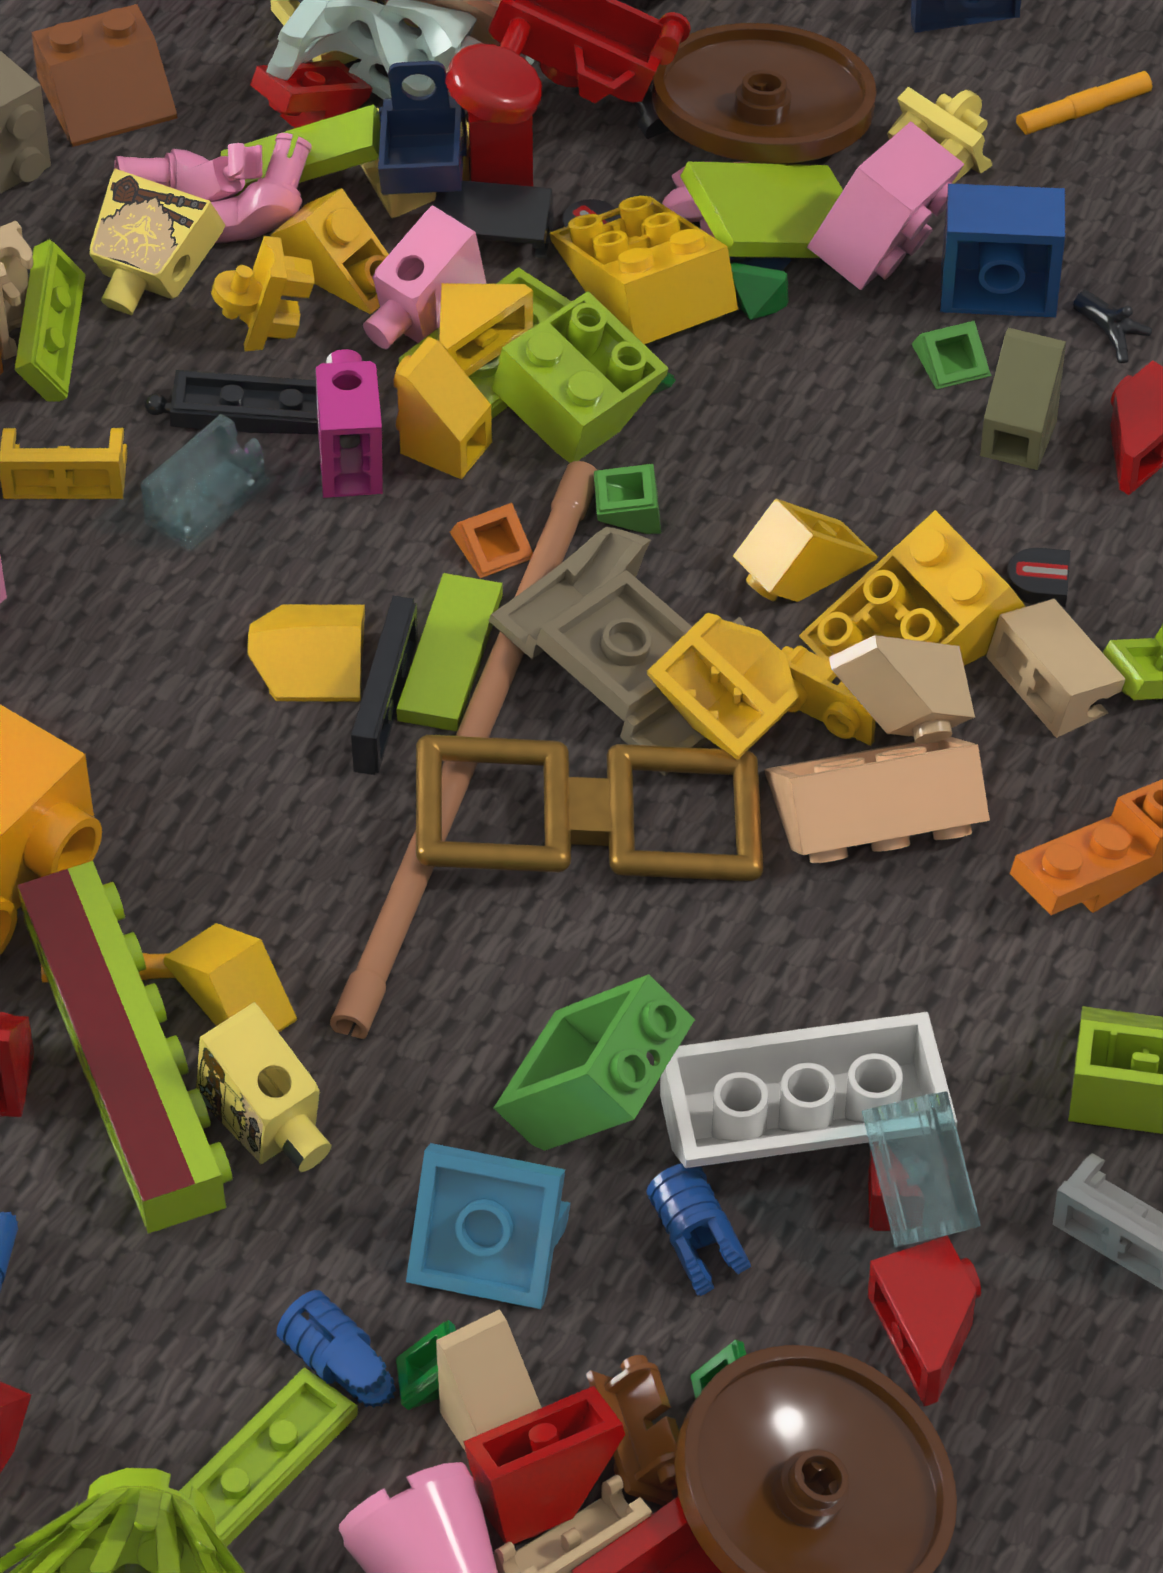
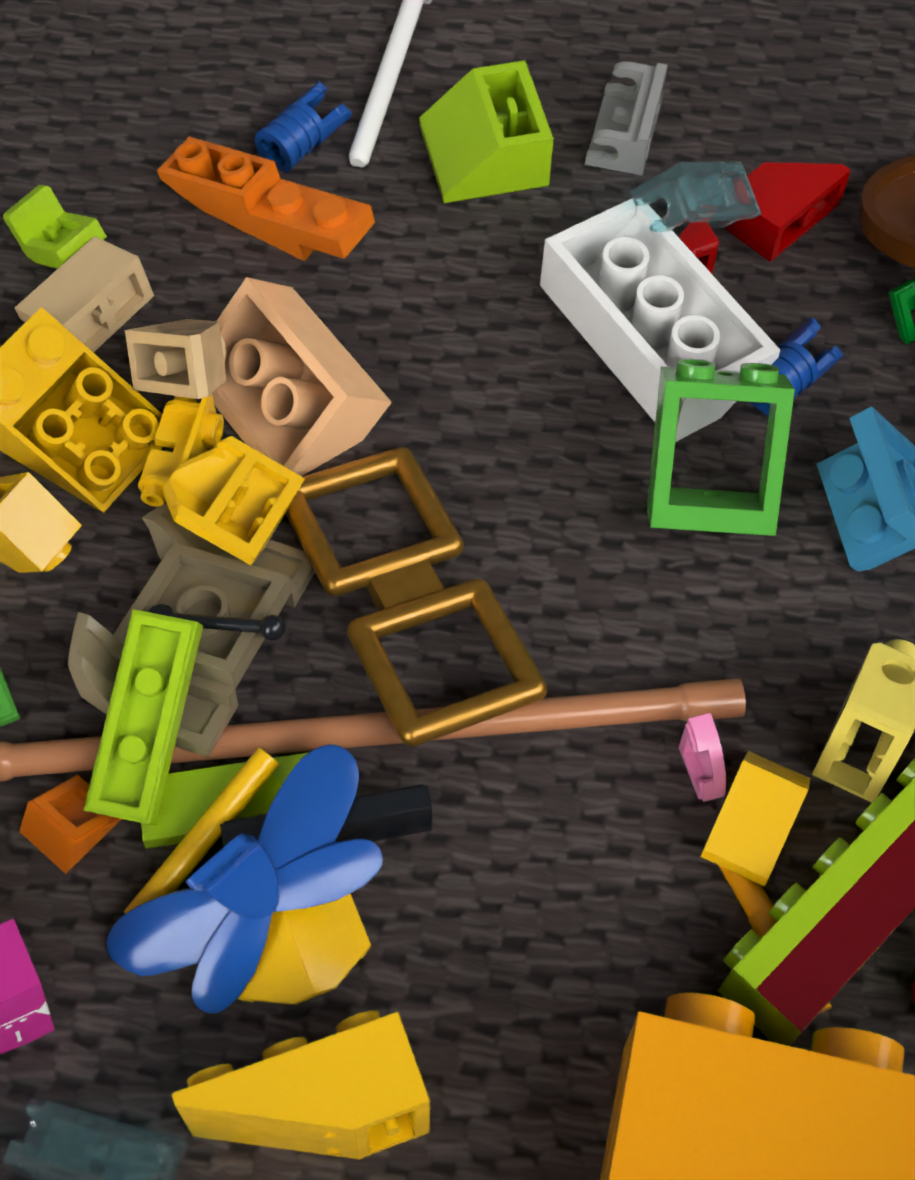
camera: 115 degrees left, 10 degrees up
(152, 598) = (320, 1097): none -> yellow slope
(307, 967) = (702, 756): none -> bright pink tile
(356, 626) = (232, 897): none -> blue piece
(428, 610) = (208, 829): none -> yellow bar
(537, 572) = (143, 717): none -> lime tile
(622, 603) = (270, 627): none -> black hinge

